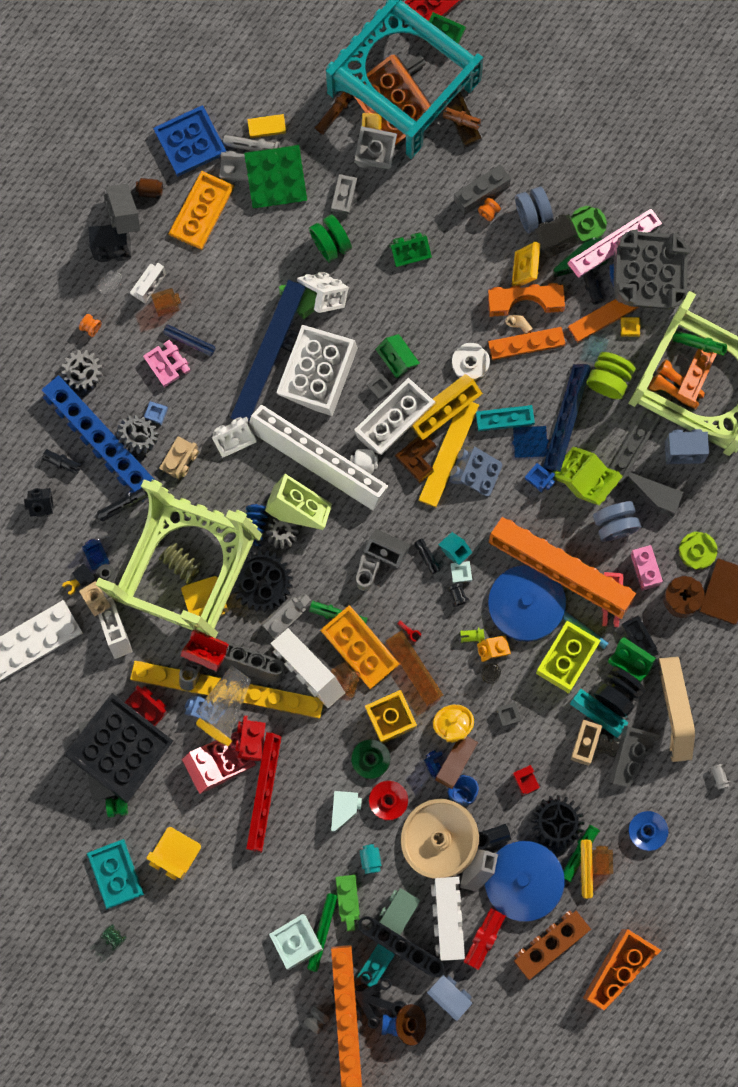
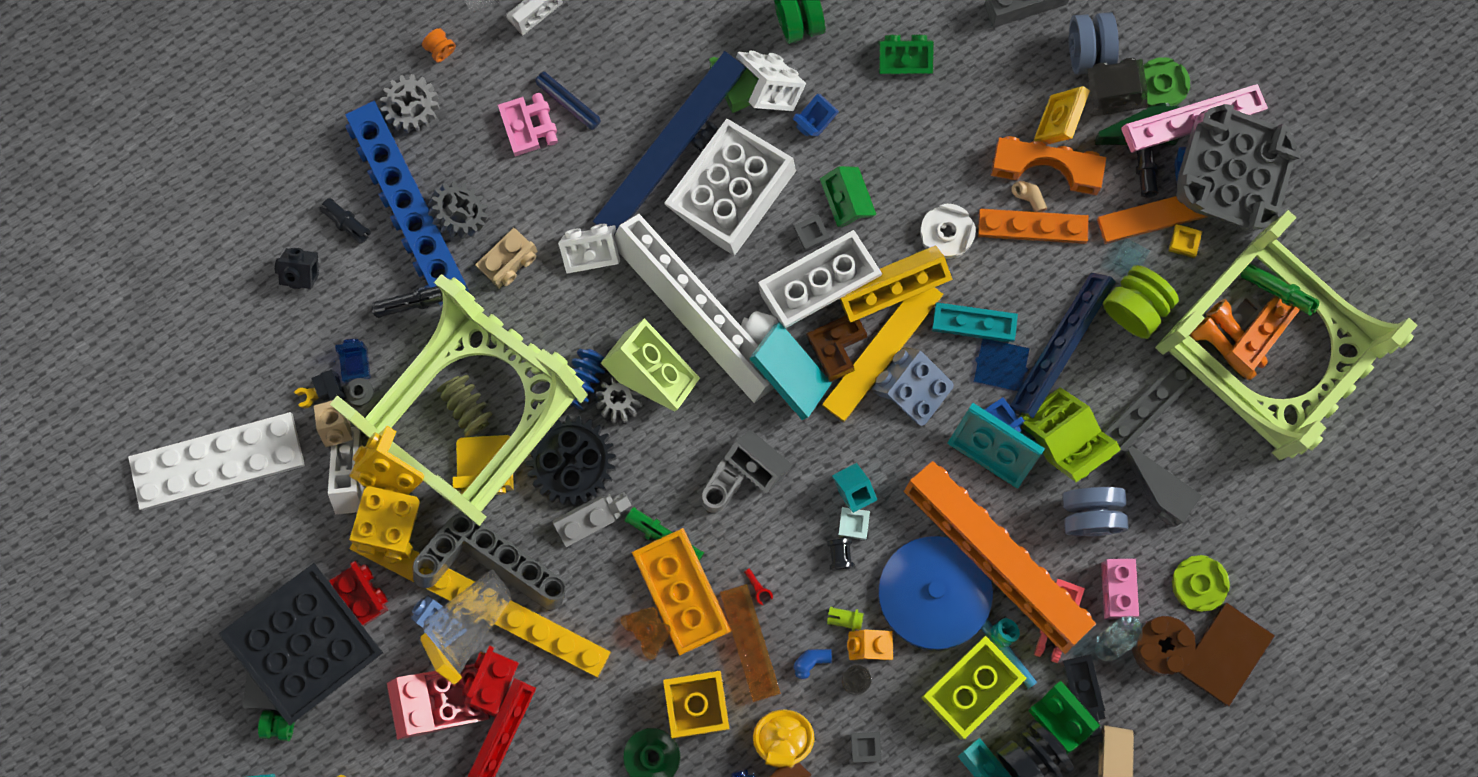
camera: 15 degrees right, 0 degrees up
(141, 620) = (382, 470): none -> yellow bracket
(152, 654) = (385, 523): none -> yellow bracket
(155, 413) = (493, 188): medium blue tile -> none
(166, 301) = (550, 40): clear orange brick -> none
(205, 650) = (459, 539): red bracket -> none
(307, 667) = (598, 602): white wedge -> none
(360, 307) = (815, 116): none -> blue bracket
(392, 482) = (790, 371): none -> tile
(427, 556) = (812, 487): black axle -> none
(455, 669) = (808, 660): none -> blue arm
(489, 209) = (1030, 27): orange wheel -> none
(540, 496) = (995, 445): none -> teal tile
(579, 621) = (1002, 639): none -> teal bush
(651, 598) = (1115, 635): none -> clear light blue beam
(686, 447) = (1223, 431): sand blue brick -> none

